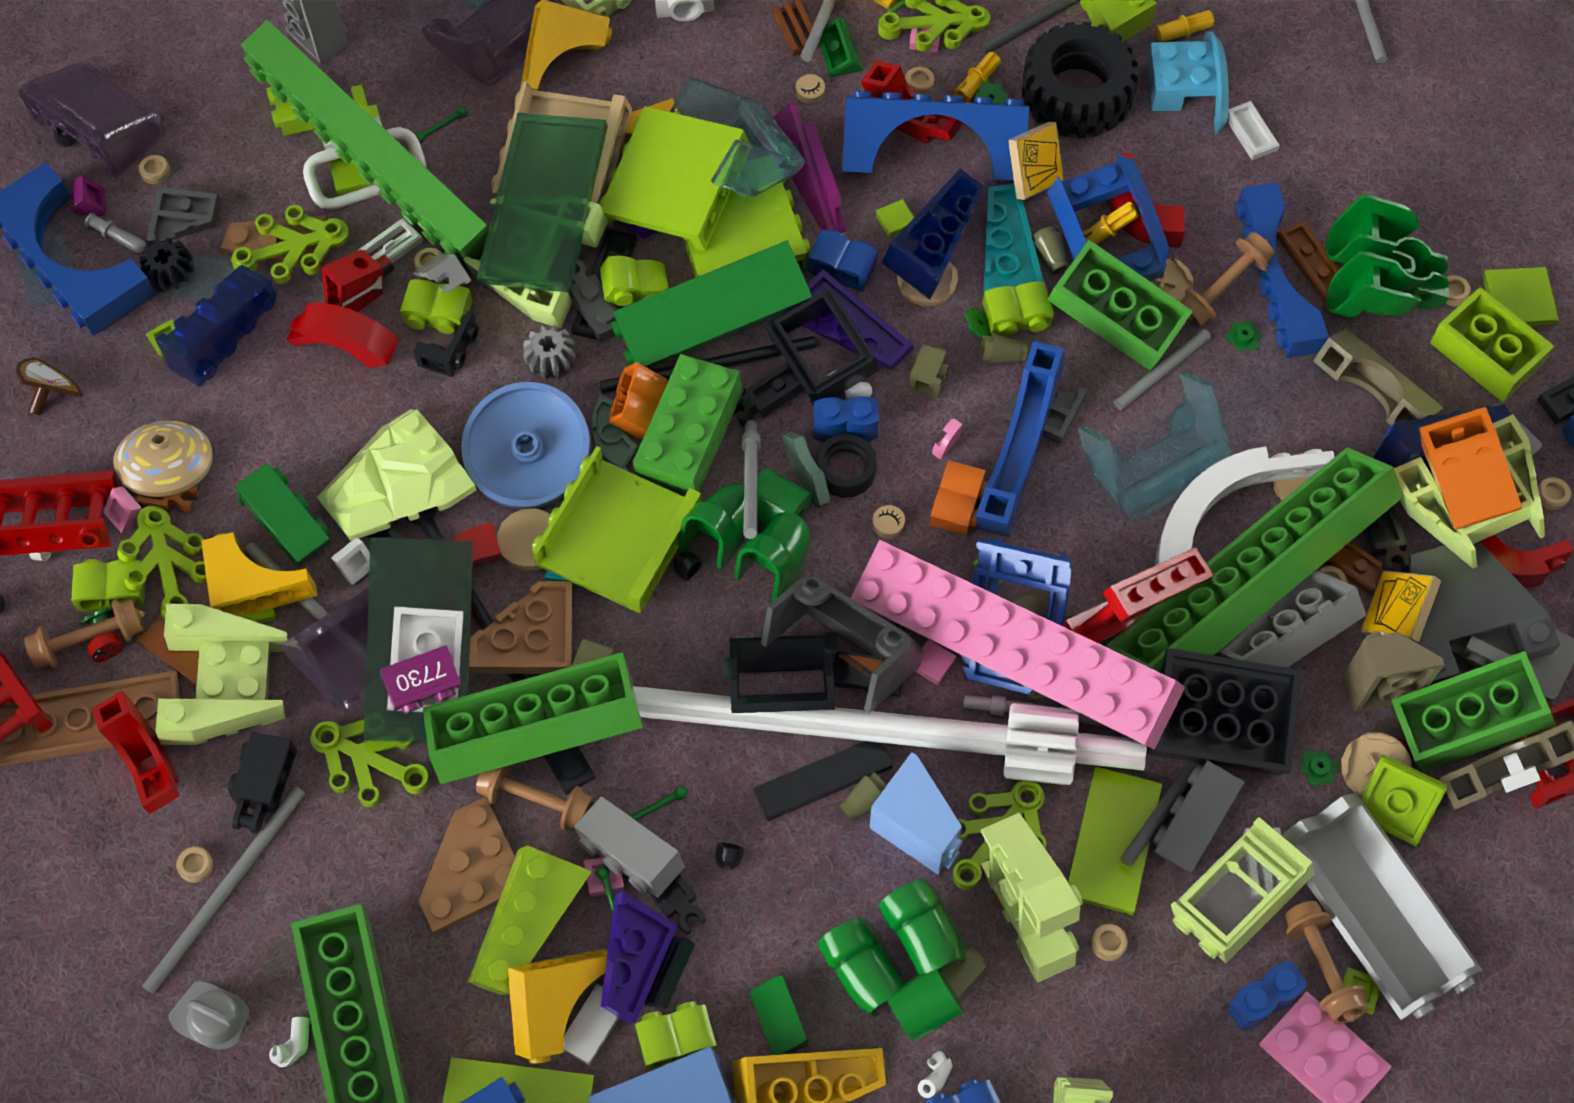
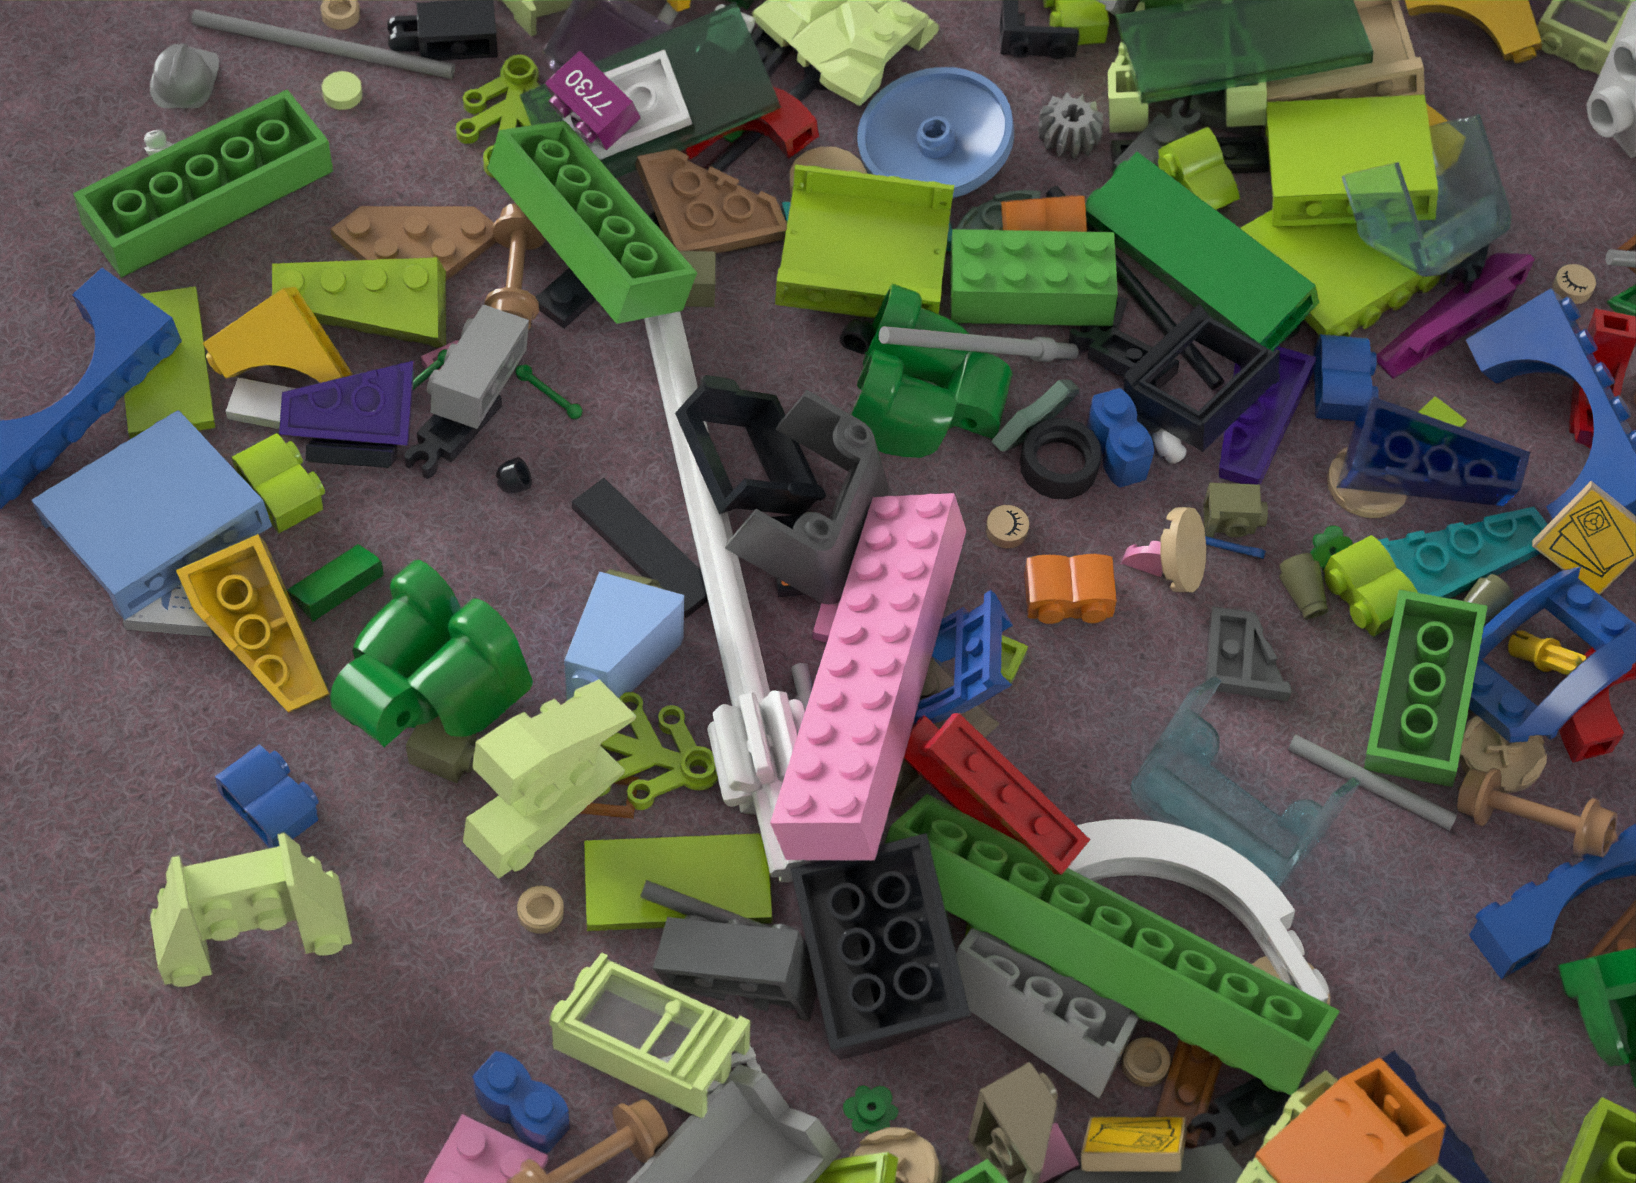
camera: 65 degrees right, 5 degrees down
(284, 885) = (342, 90): none -> yellowish green tile
(934, 408) = (1250, 551): none -> blue hinge
(936, 1080) = (305, 760): white arm -> none
(958, 412) = (1183, 550): none -> tan tile
(1031, 411) = (1254, 621): blue arch -> none
(1241, 341) = (1470, 881): green plant -> none
(1353, 361) = (1496, 1005): dark tan arch -> none

